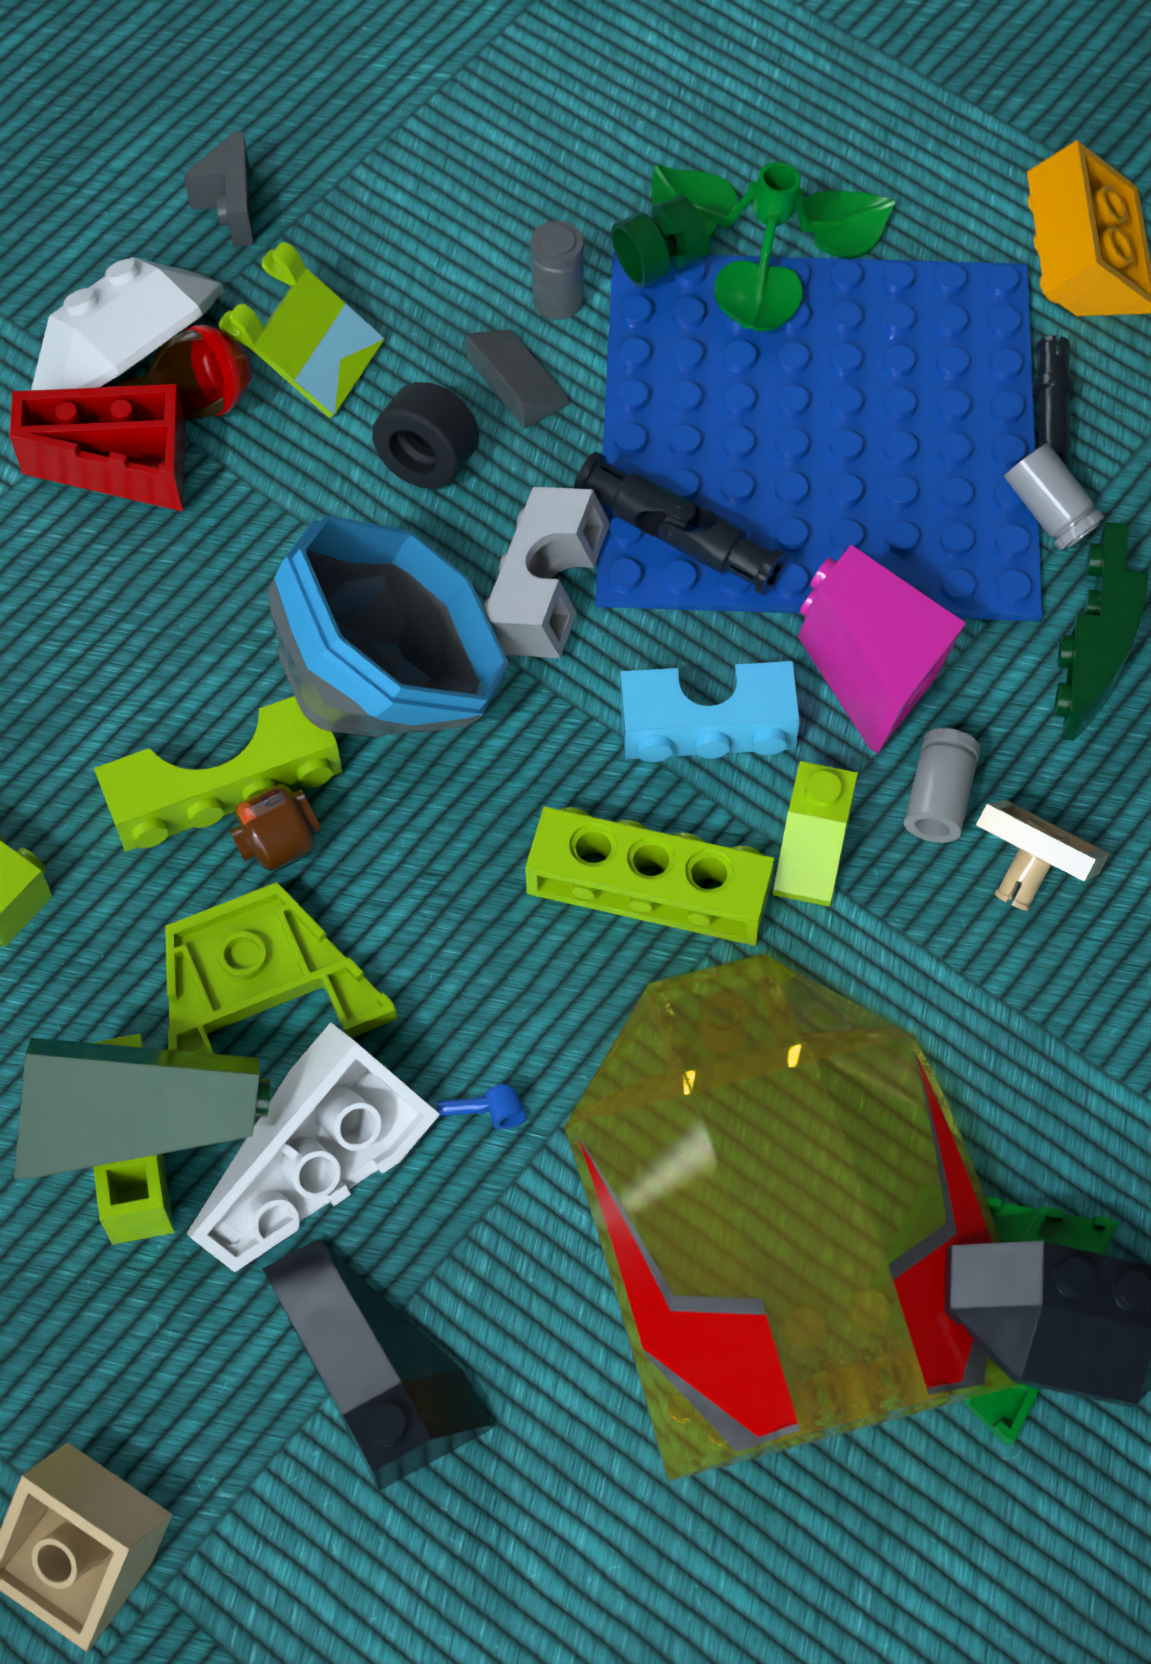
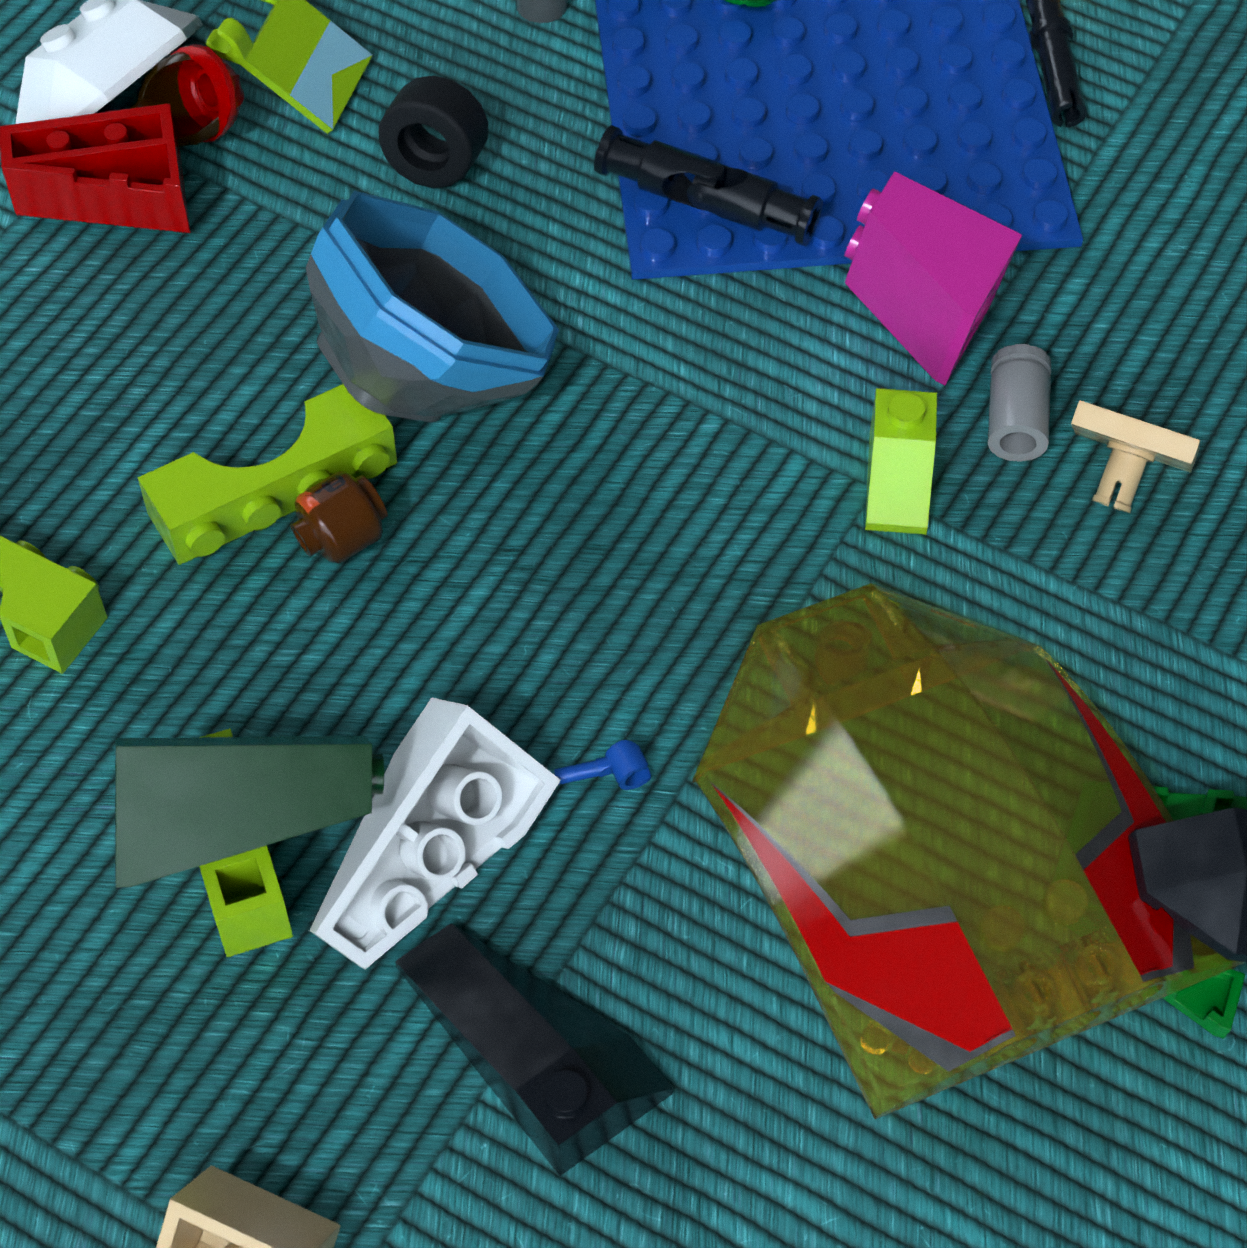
camera: 10 degrees left, 5 degrees down
(255, 958) = (339, 648): lime wing -> none
(514, 375) = (510, 75): dark grey slope -> none
(552, 534) = (566, 268): light grey arch -> none
(666, 724) = (728, 375): medium azure arch -> none
(668, 899) = (712, 536): lime brick -> none
(1054, 497) = (1075, 125): light grey piece -> none
(1102, 634) = (1148, 244): dark green slope -> none

